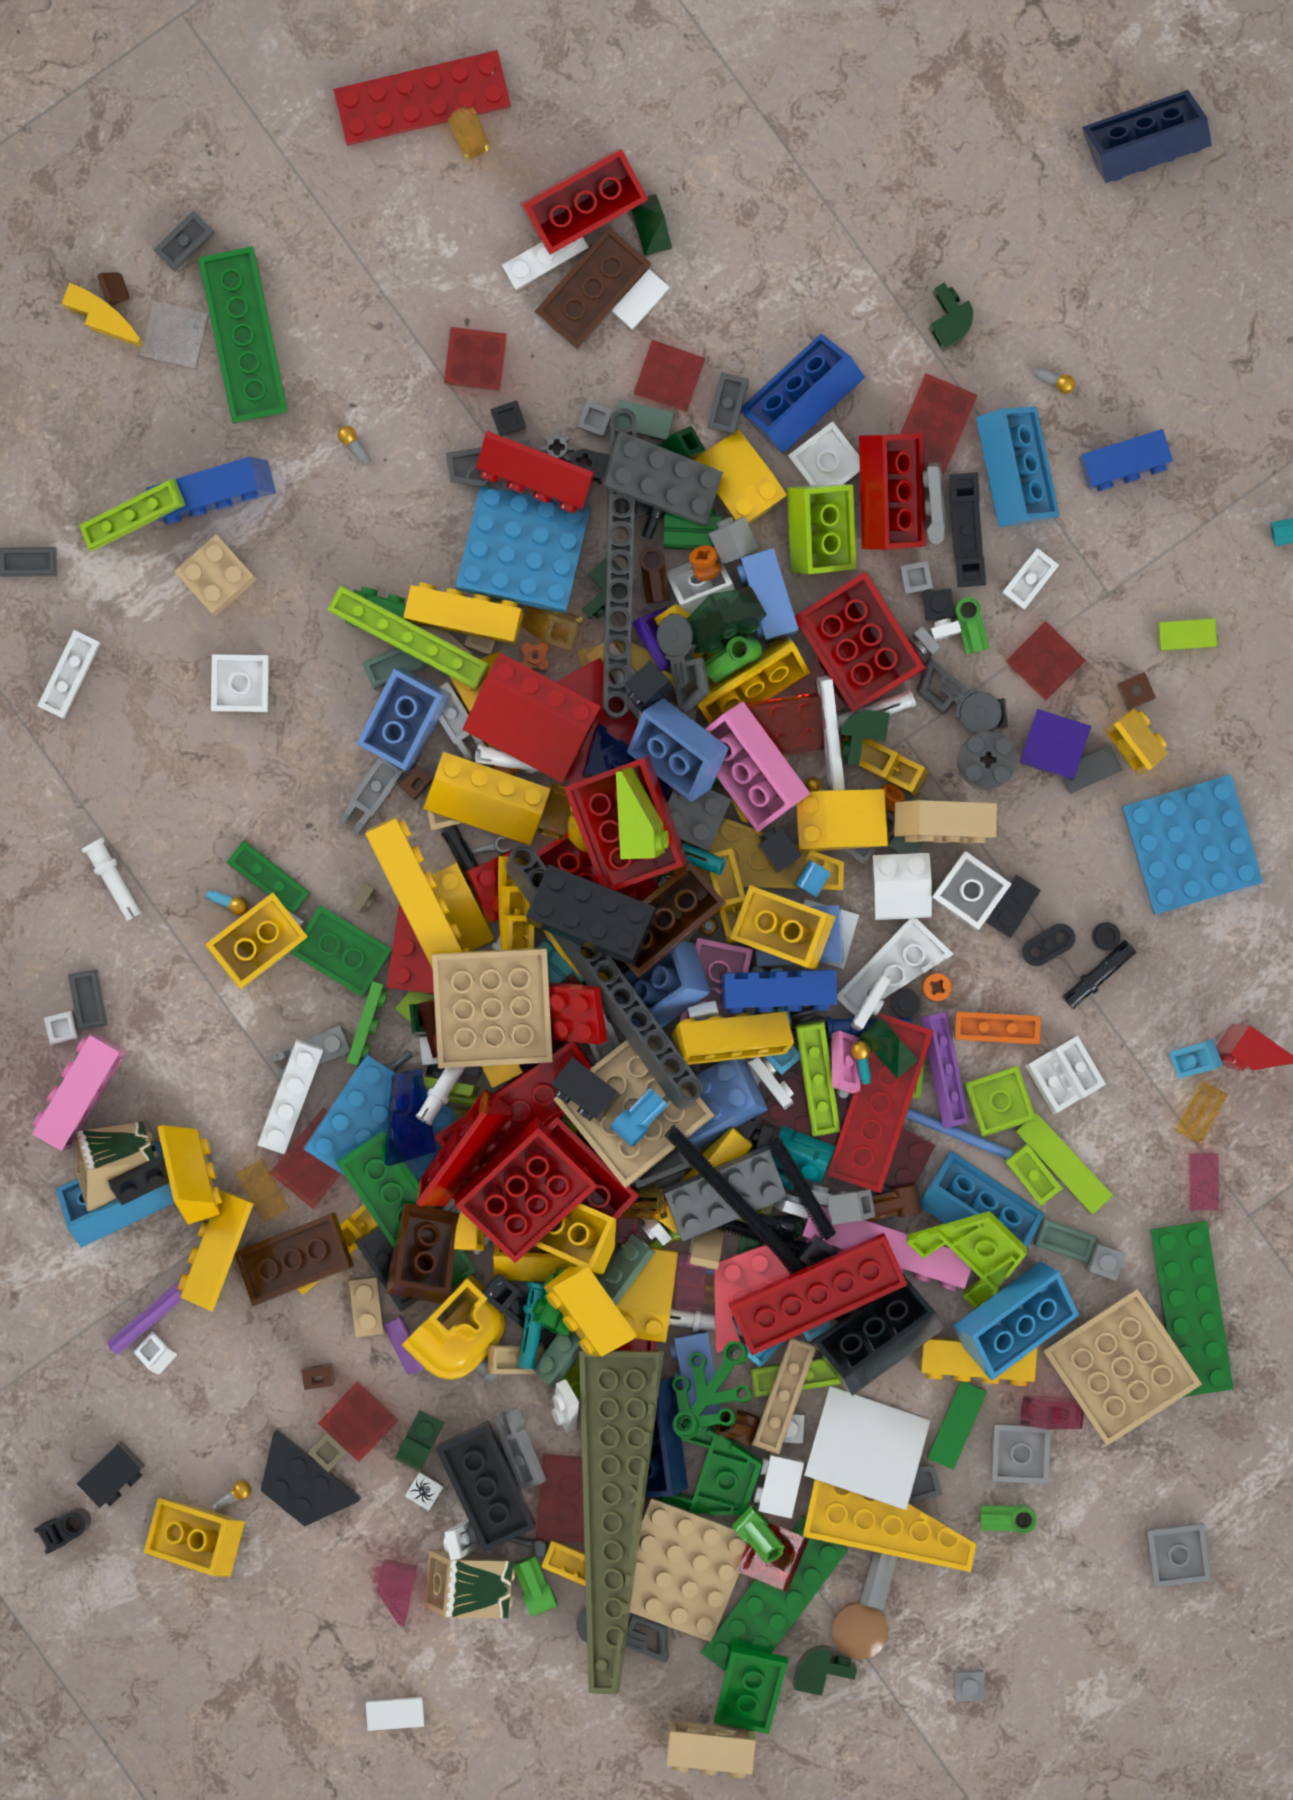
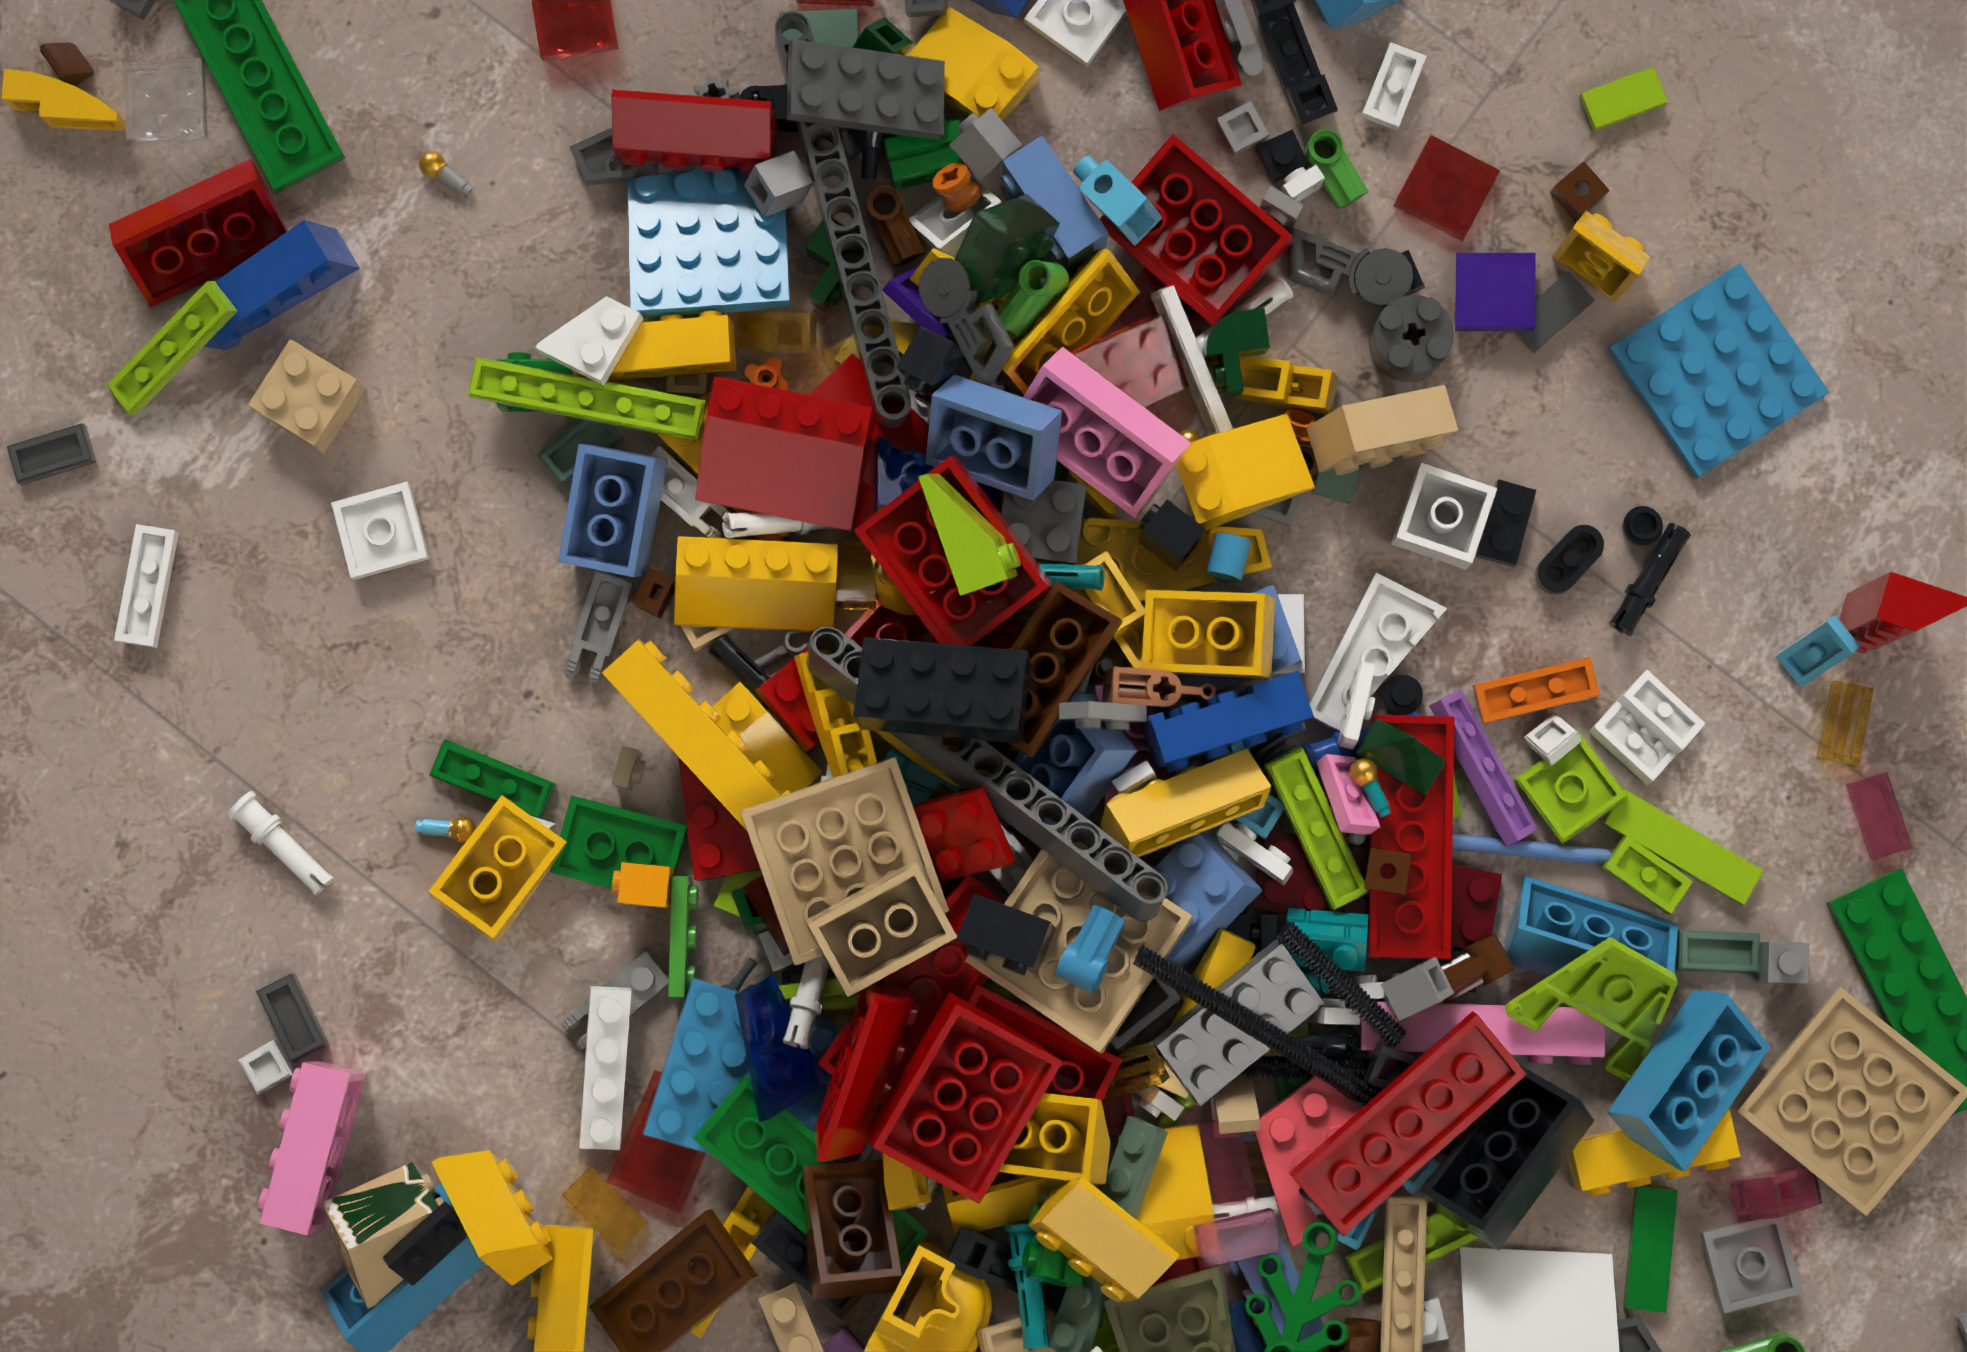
camera: 10 degrees left, 5 degrees down
(172, 437) = (197, 232): none -> red slope
(351, 982) = (643, 885): none -> light orange brick
(424, 598) = (593, 339): none -> white wing
(503, 1061) = (881, 928): none -> tan brick
(508, 418) = (640, 75): black plate -> none
(583, 525) = (779, 183): none -> light grey brick
(594, 418) = (754, 46): light grey plate -> none
(680, 1335) = (1236, 1237): none -> clear pink tile
(701, 965) = (1091, 714): none -> light grey plate
(726, 957) = (1136, 687): none -> nougat piece
(815, 615) = (1116, 198): none -> medium azure torso
(821, 528) = (1097, 97): lime slope -> none
(865, 1117) = (1375, 881): none -> reddish brown piece
(902, 886) = (1349, 537): white slope -> none
(932, 985) = (1433, 666): orange wheel -> none
(998, 1064) = (1553, 739): none -> white tile

